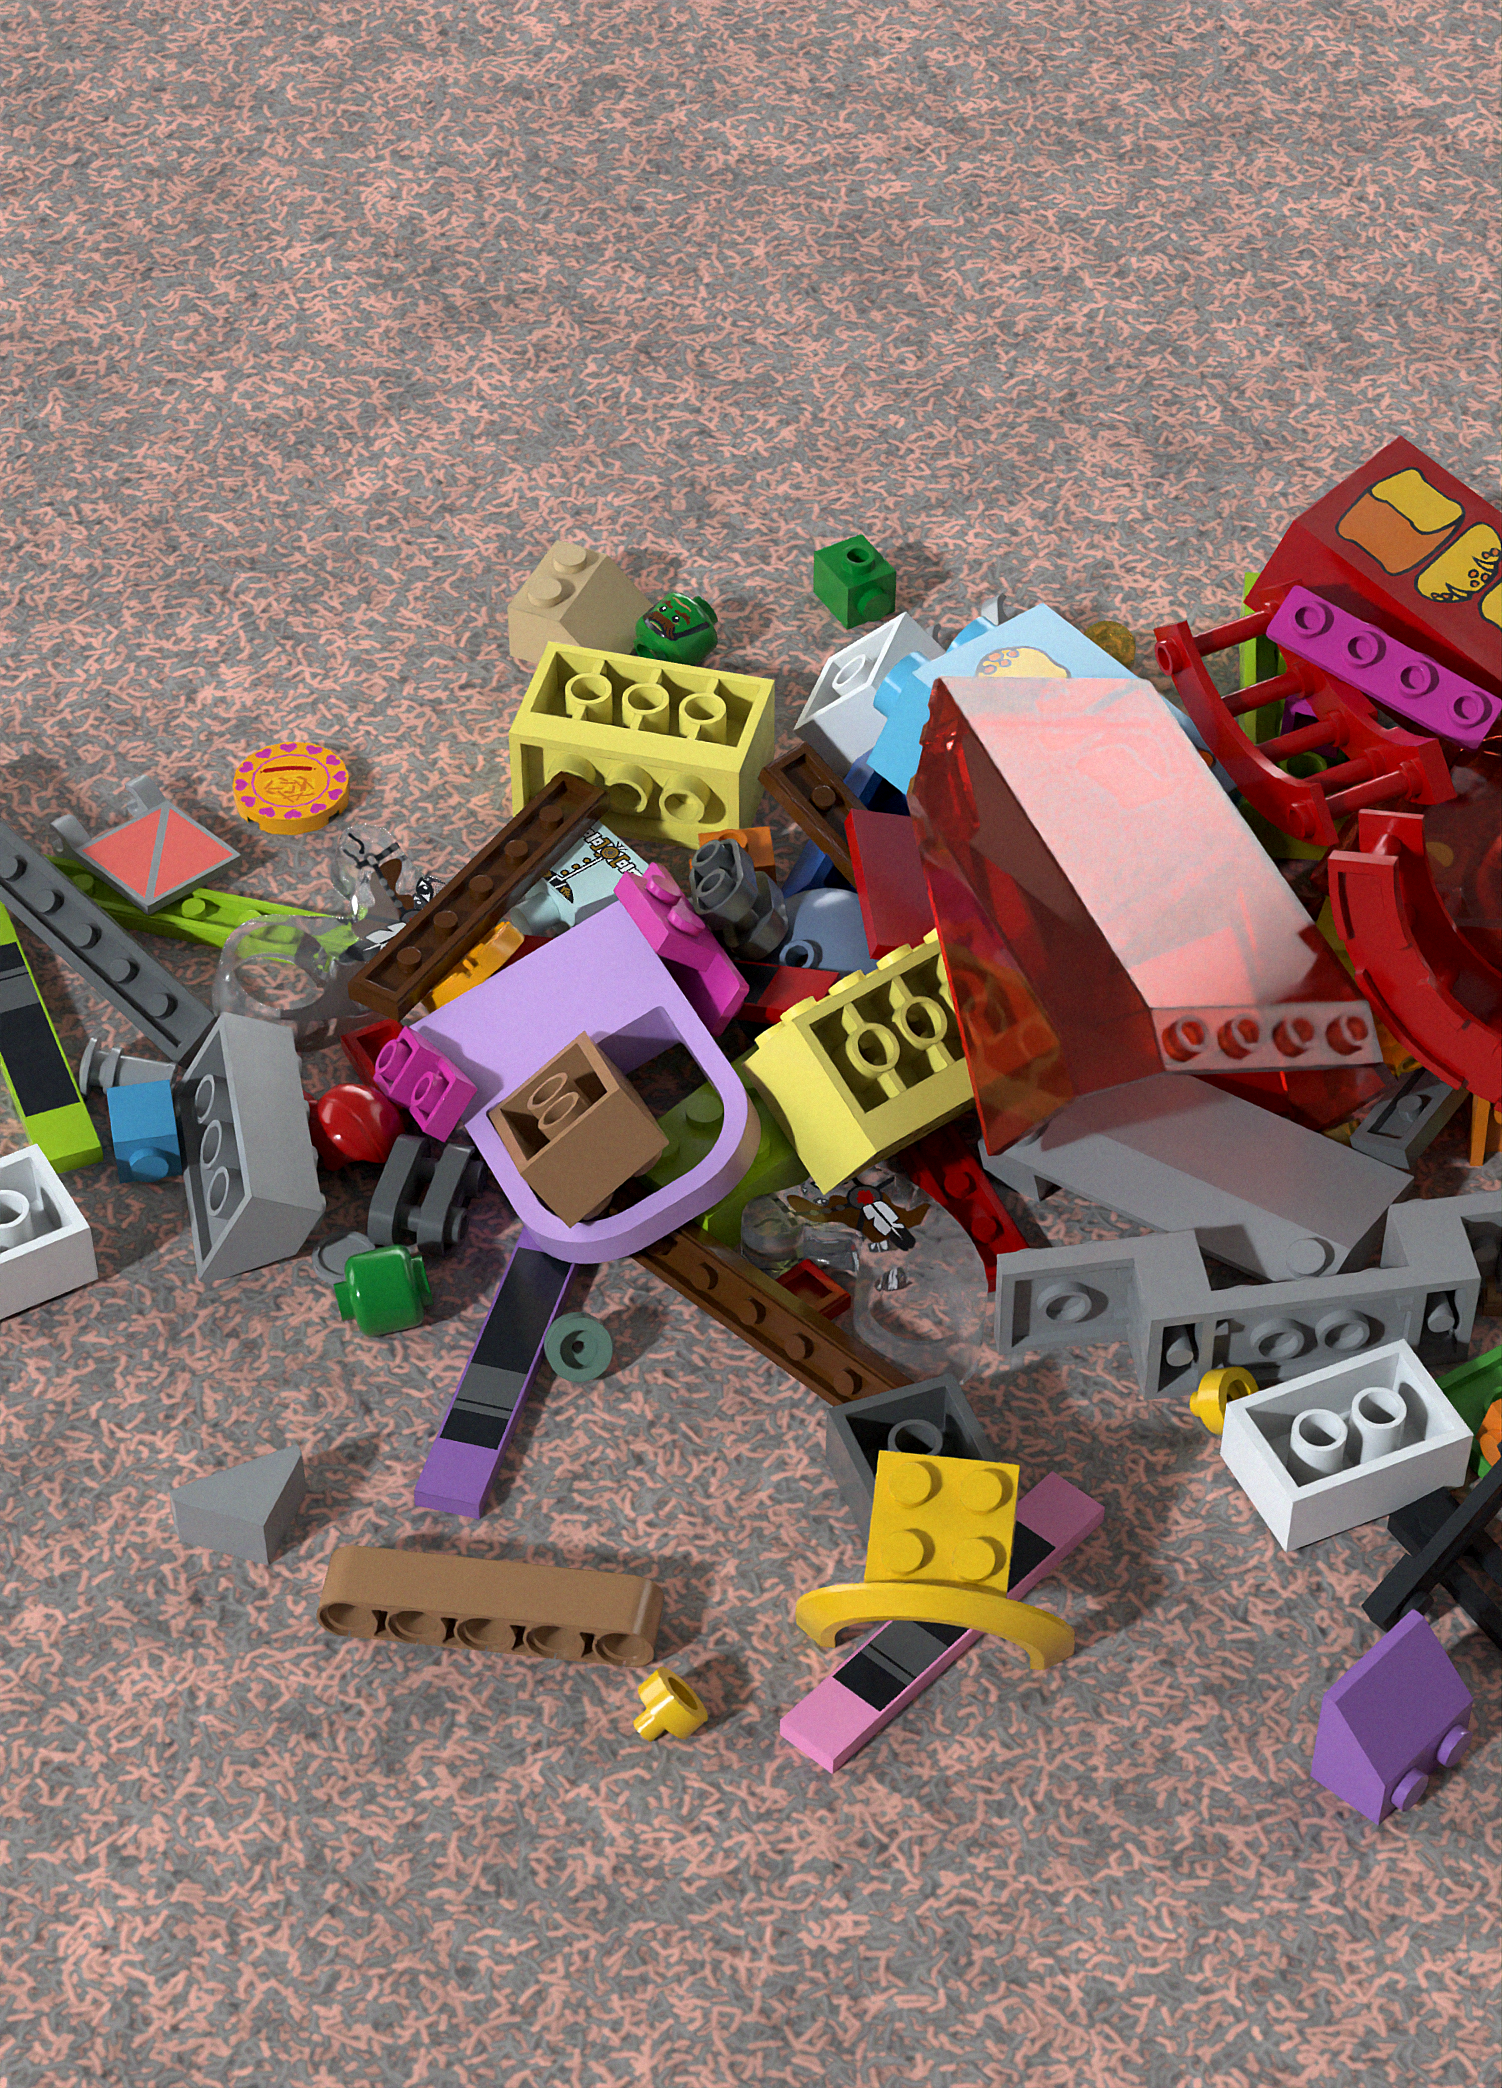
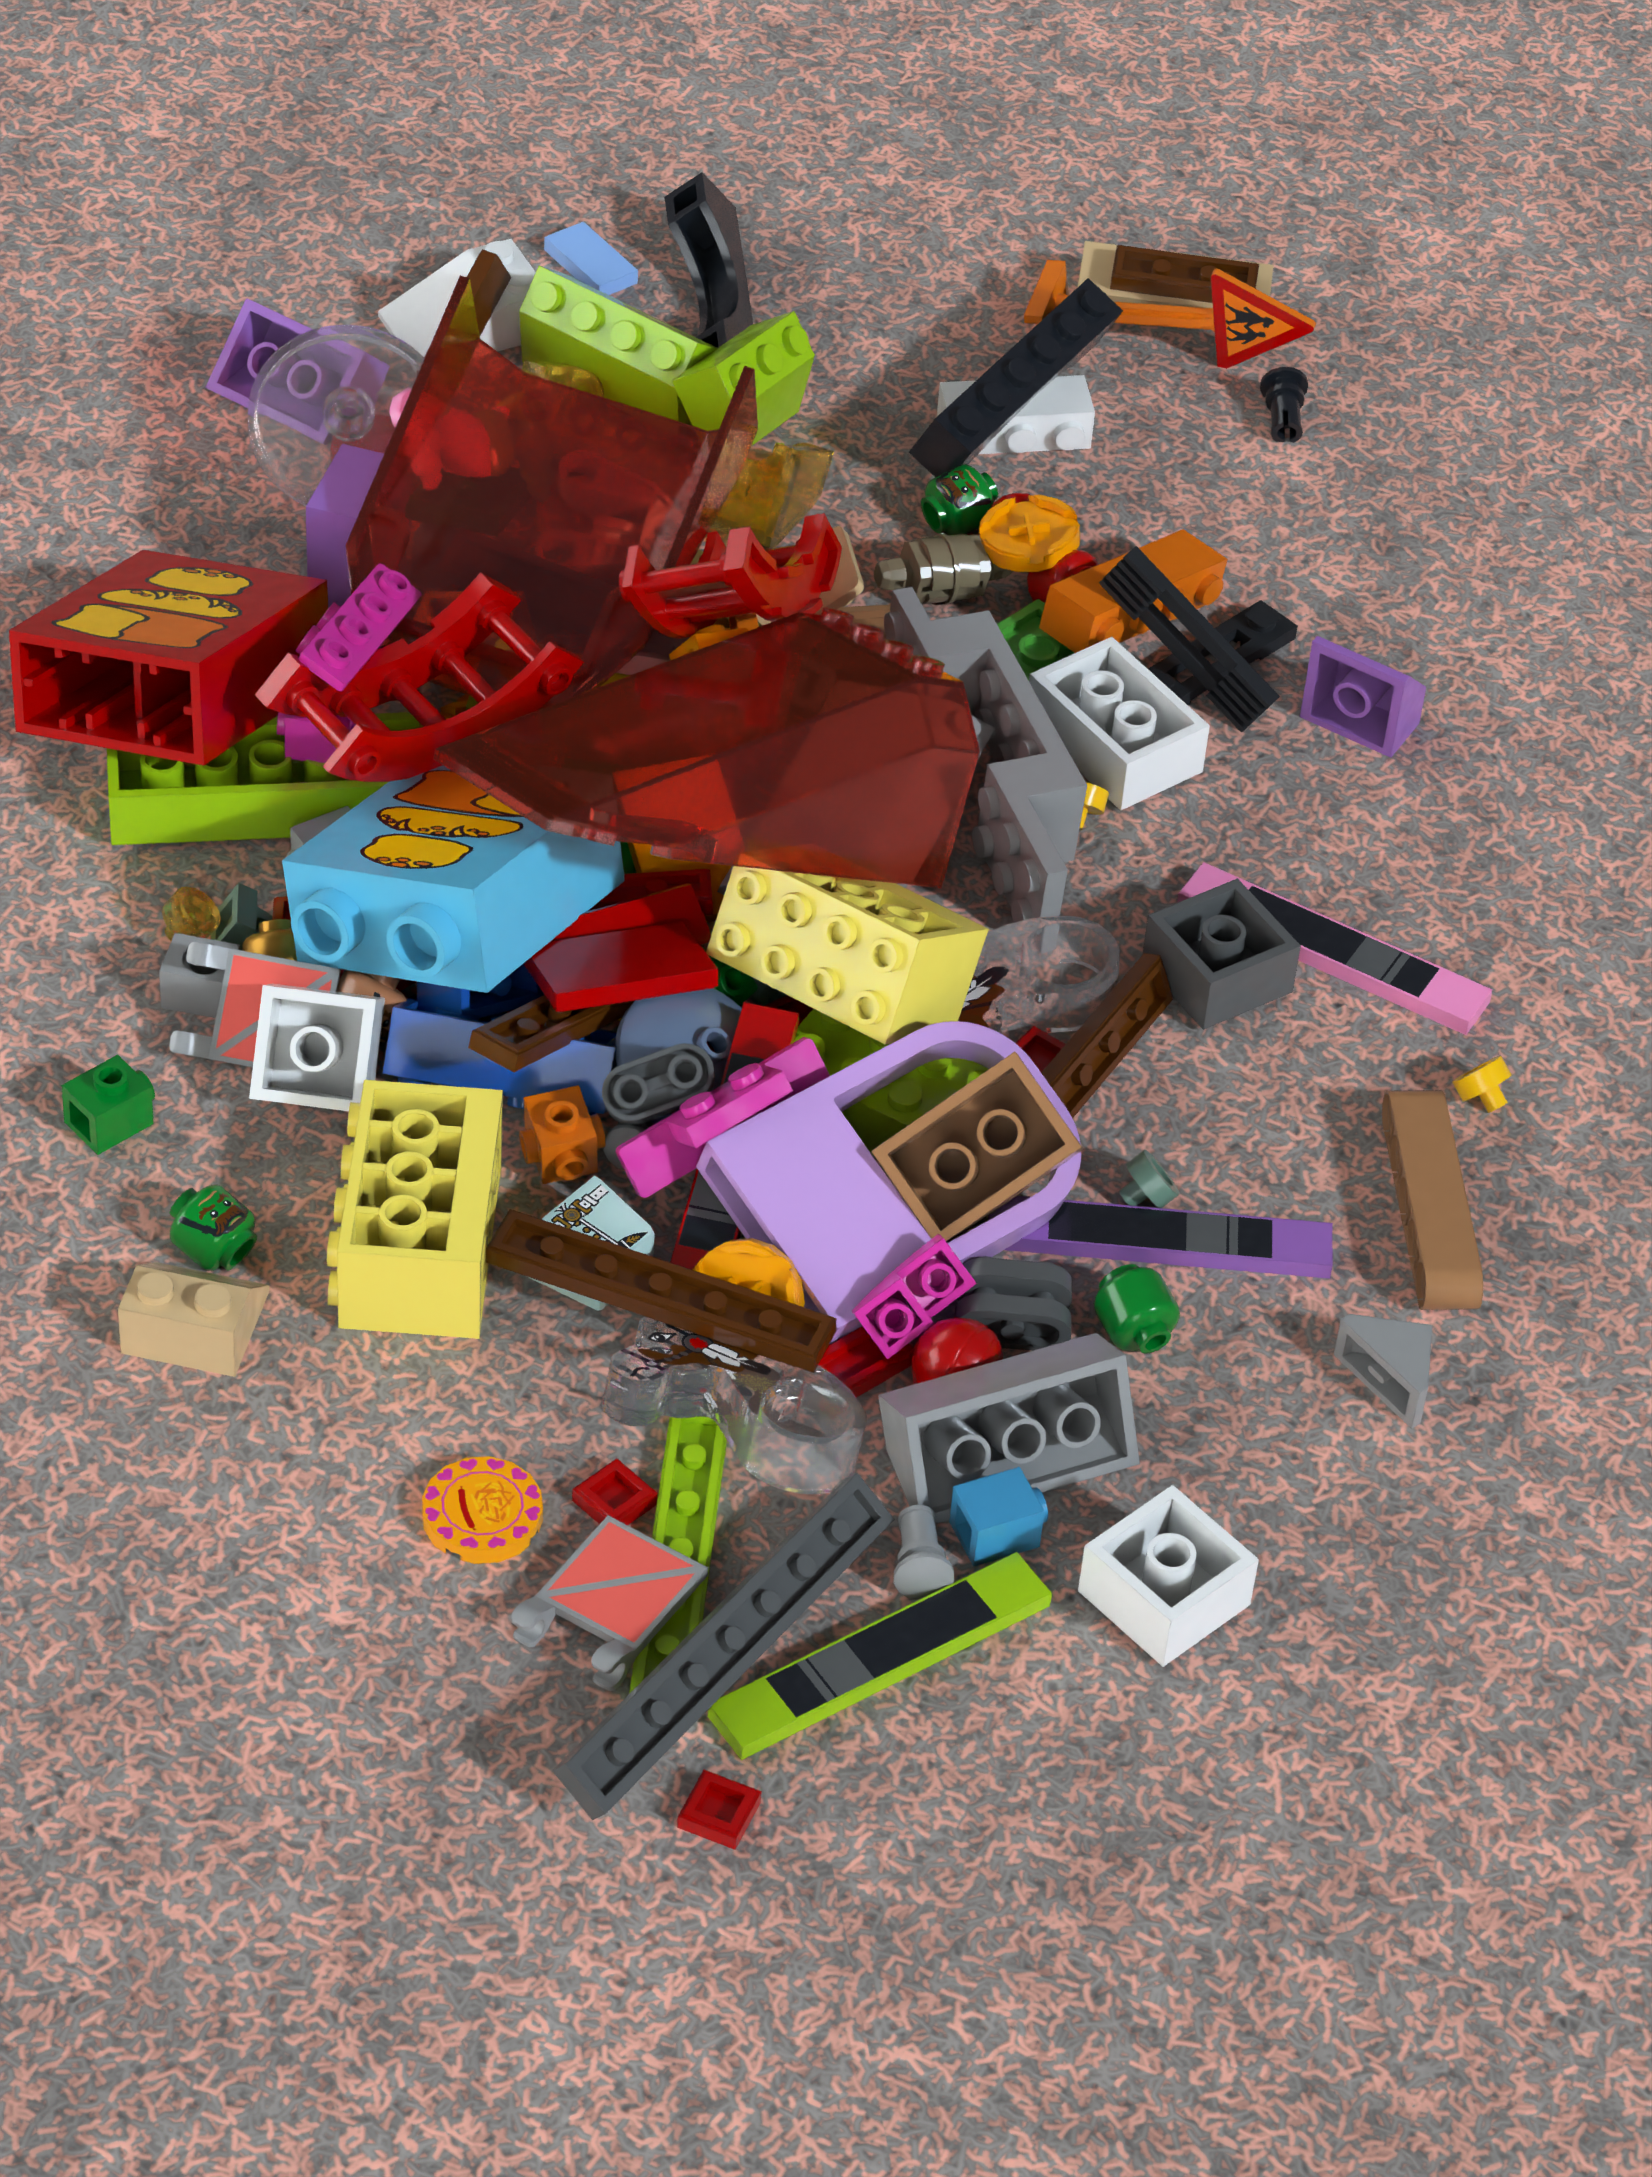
camera: 105 degrees left, 0 degrees up
(279, 876) = (614, 1493): none -> red tile
(940, 1557) = (1332, 877): yellow piece -> none

